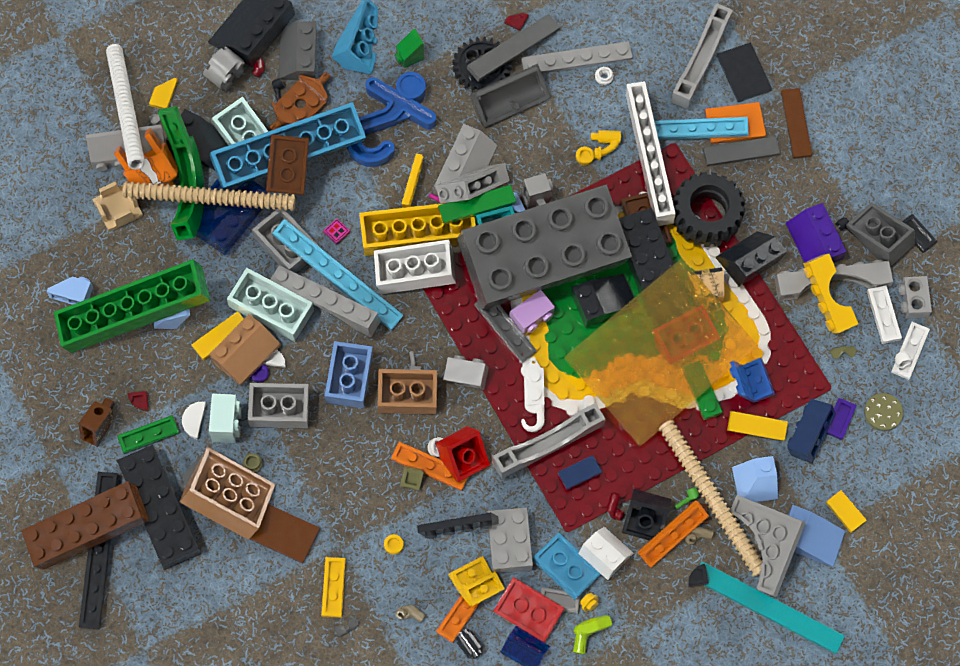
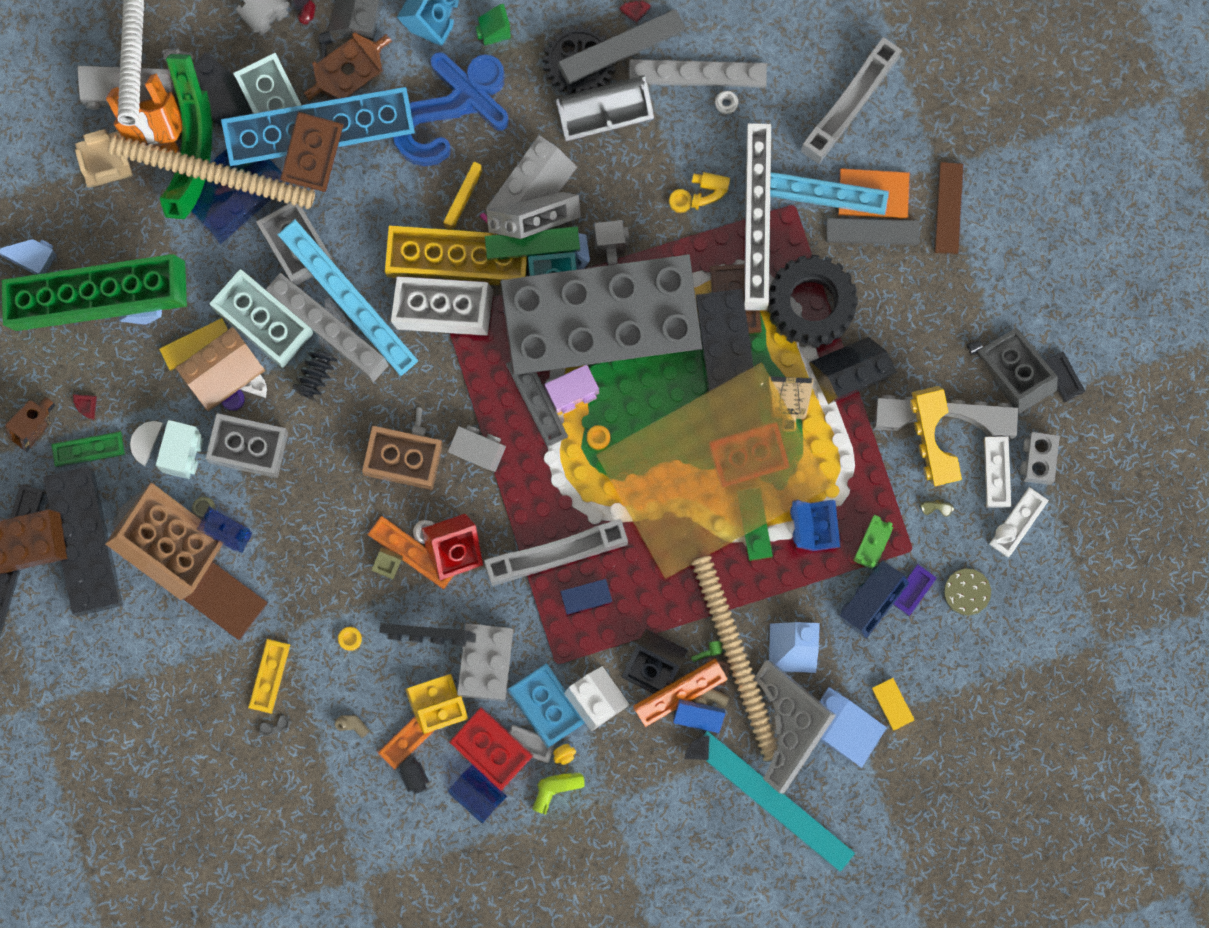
camera: 10 degrees right, 10 degrees up
(163, 94) = (184, 25): yellow tile -> none
(273, 476) = (224, 530): none -> clear blue hinge
(320, 340) = (314, 374): none -> black piece
(336, 231) = (360, 240): dark pink tile -> none
(348, 374) = (337, 423): medium blue brick -> none
(534, 394) = (553, 490): white plate -> none
(561, 346) = (598, 437): none -> yellow tile
(601, 298) = (661, 388): black slope -> none
(613, 508) = (617, 648): dark red arm -> none
(692, 550) = (699, 716): none -> tile
(744, 72) = (900, 130): black tile -> none
(757, 426) = (811, 580): yellow tile -> none
(800, 386) = (873, 542): none -> bright green hinge
(815, 234) = (937, 357): dark purple slope -> none

